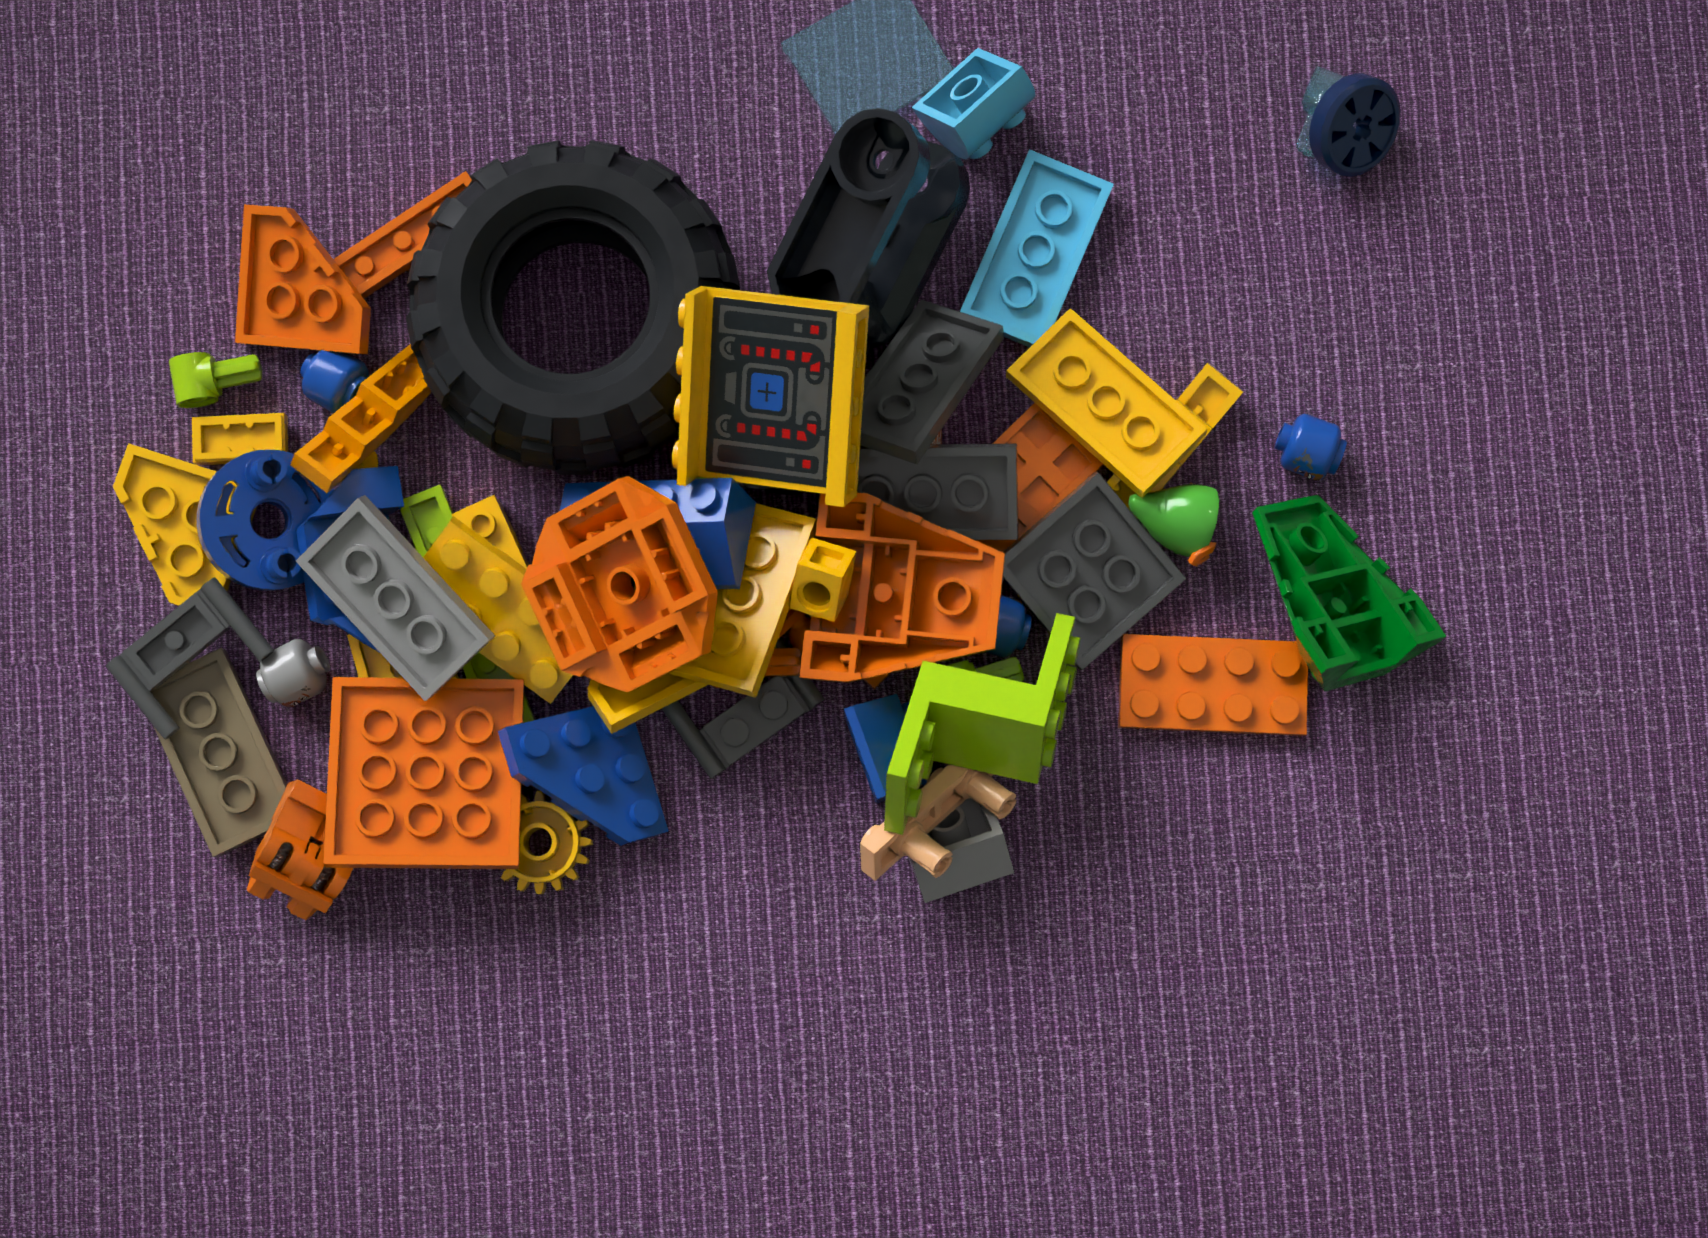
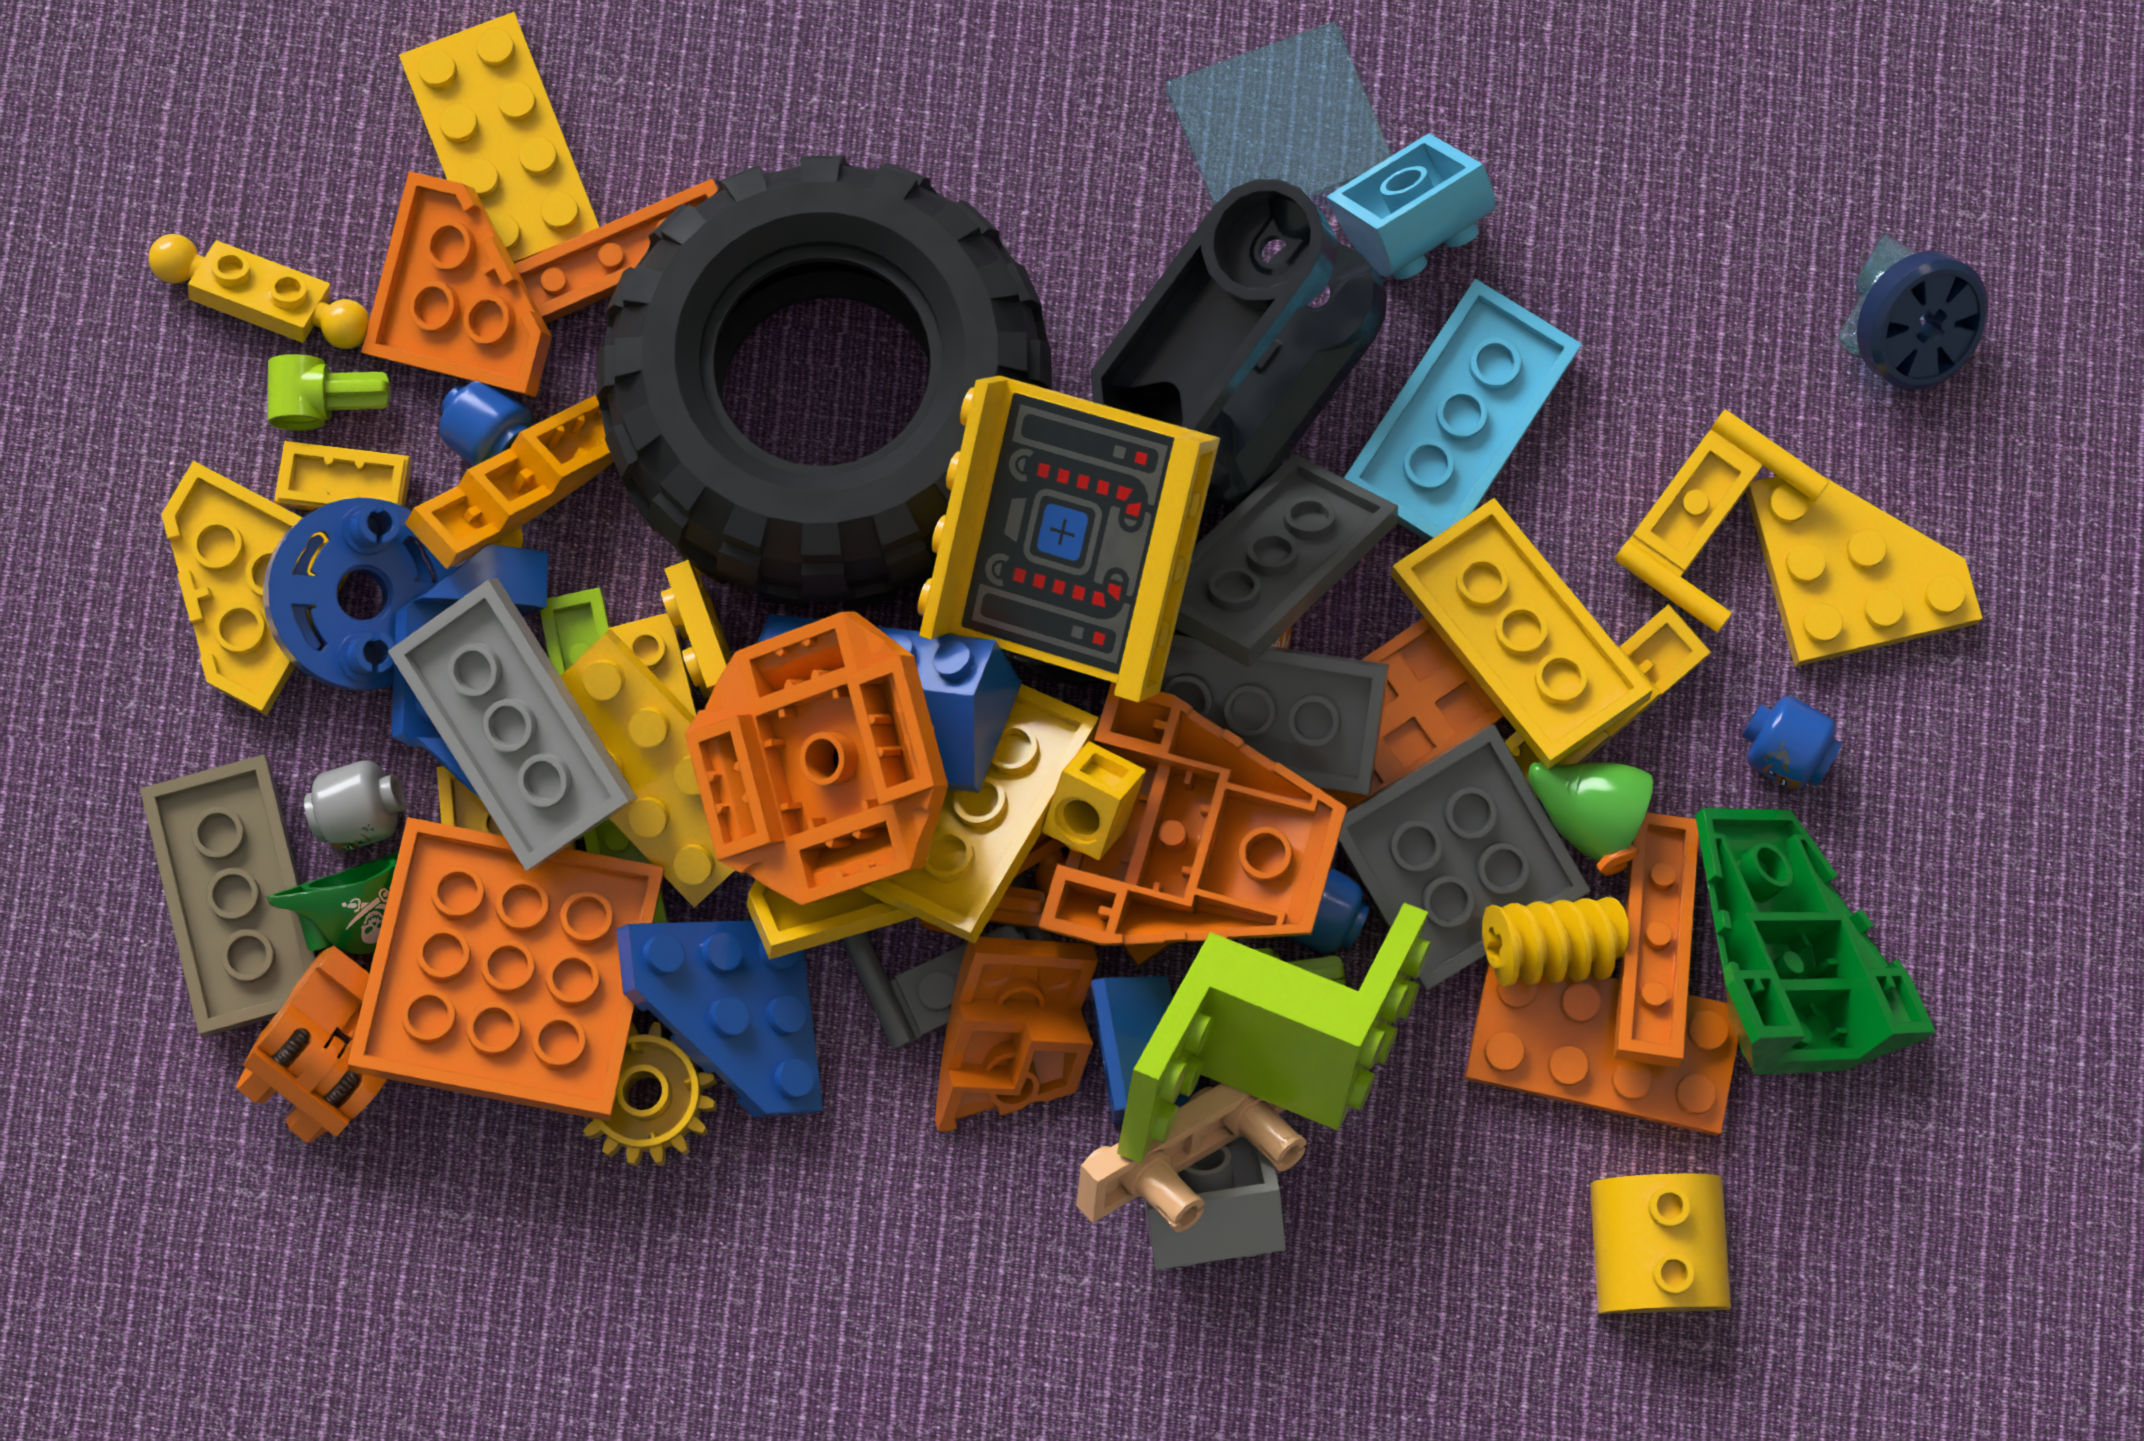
camera: 10 degrees right, 5 degrees down
(152, 310) = (259, 291): none -> yellow plate
(177, 642) = (207, 736): dark grey plate -> none
(298, 747) = (342, 907): none -> green hat
(305, 164) = (500, 134): none -> yellow plate
(512, 493) = (696, 618): none -> yellow plate
(794, 748) = (1014, 1027): none -> orange slope
(1167, 619) = (1555, 940): none -> yellow piece
(1216, 286) = (1698, 505): none -> yellow plate
(1240, 608) = (1659, 944): none -> orange plate
(1276, 820) = (1660, 1243): none -> yellow brick
(1332, 314) = (1854, 573): none -> yellow plate

